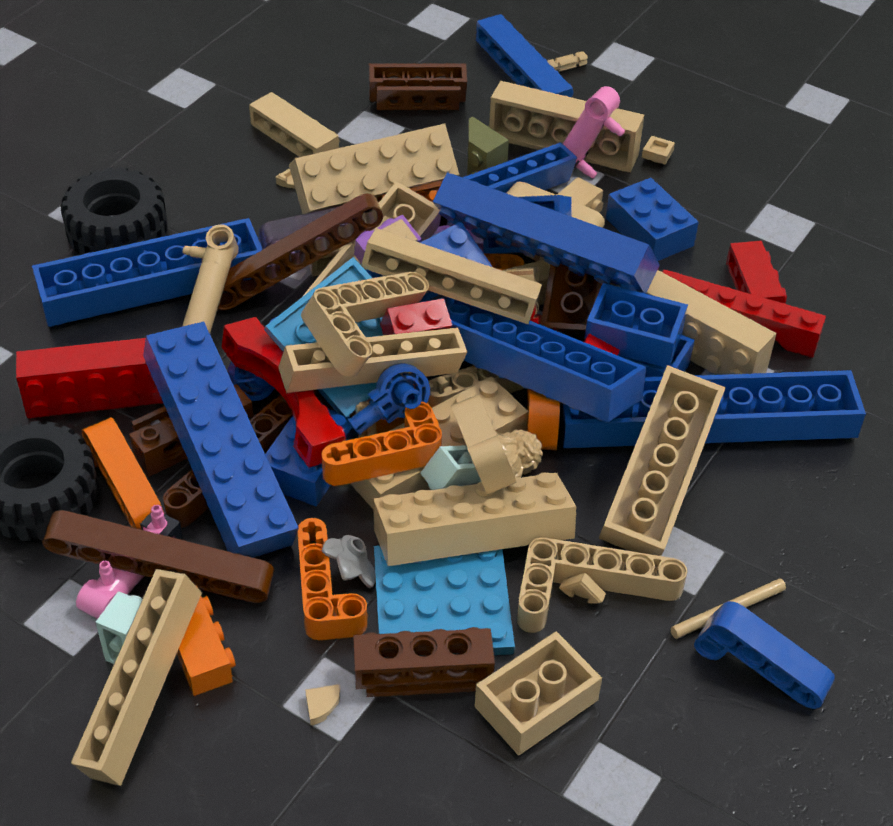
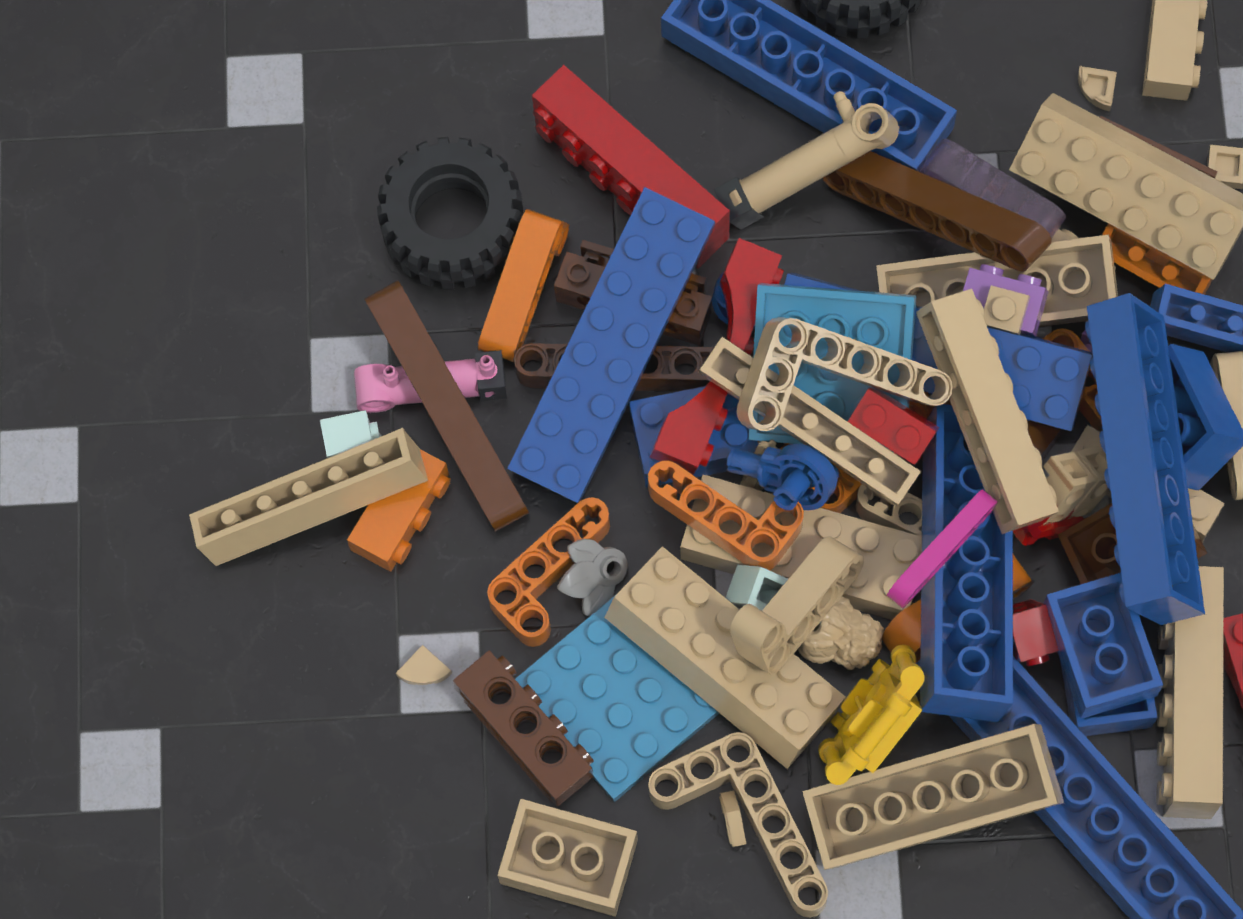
camera: 60 degrees right, 25 degrees up
(519, 339) = (942, 548): none -> dark pink beam
(587, 453) = (873, 717): none -> yellow brick

